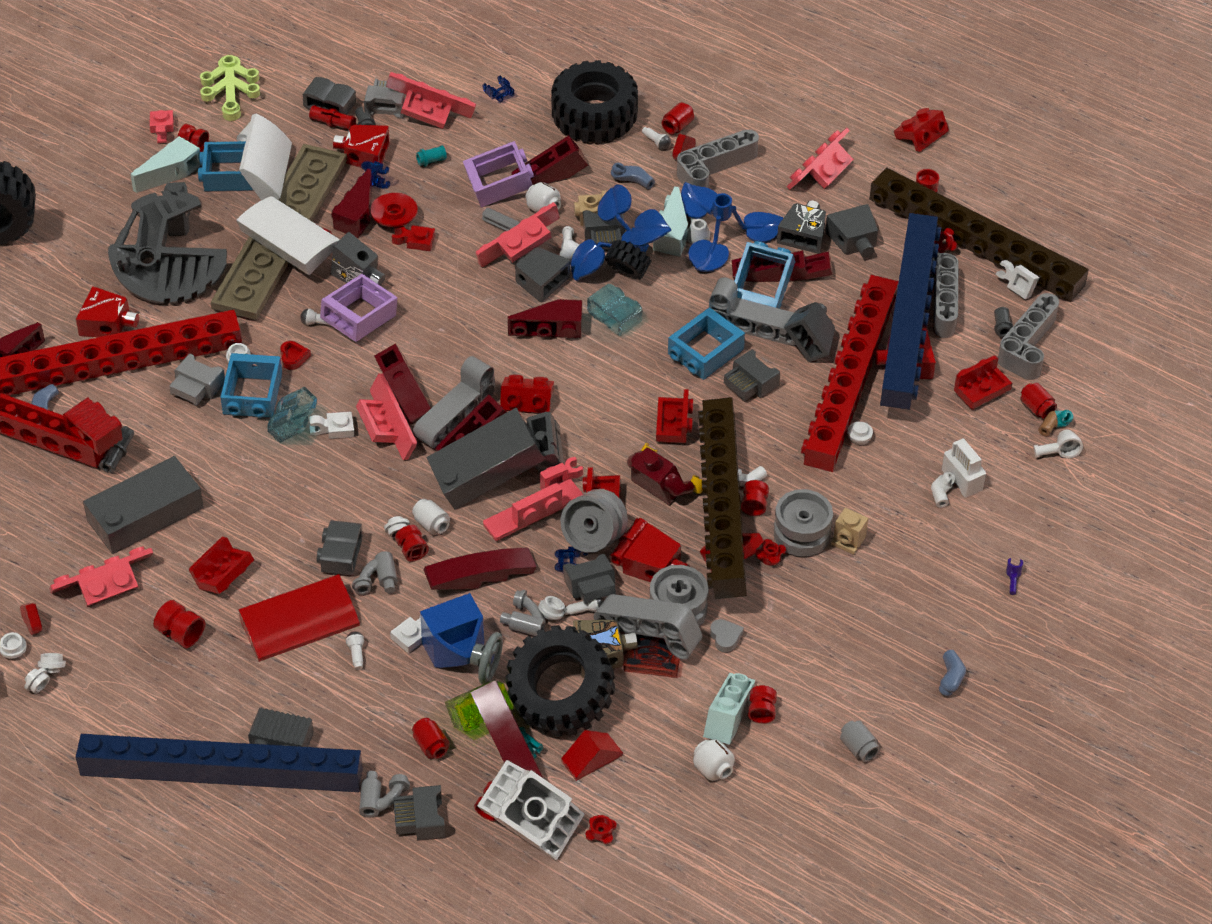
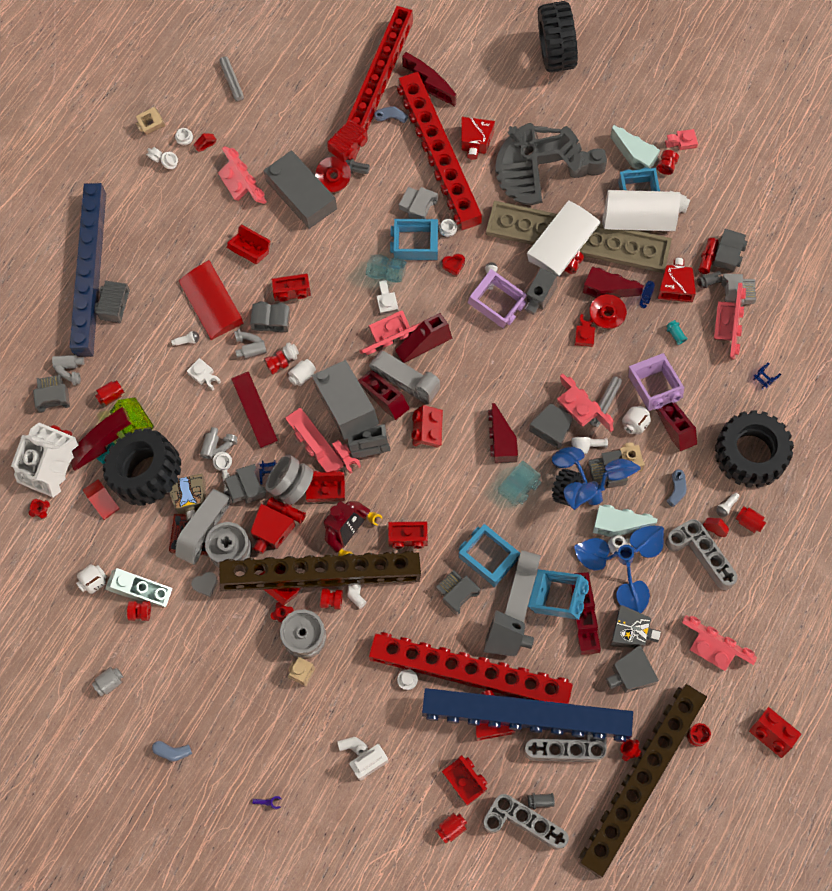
camera: 90 degrees right, 20 degrees up
(124, 458) = (333, 165): none -> red dish
(180, 625) = (200, 225): red wheel -> none
(230, 66) = (735, 177): yellowish green plant -> none
(298, 523) = (291, 287): none -> red bracket
(455, 637) = (182, 398): blue piece -> none
(1020, 279) = (590, 817): white plate -> none
(1054, 420) = (434, 841): arm -> none
(1067, 445) = (406, 851): white bar -> none

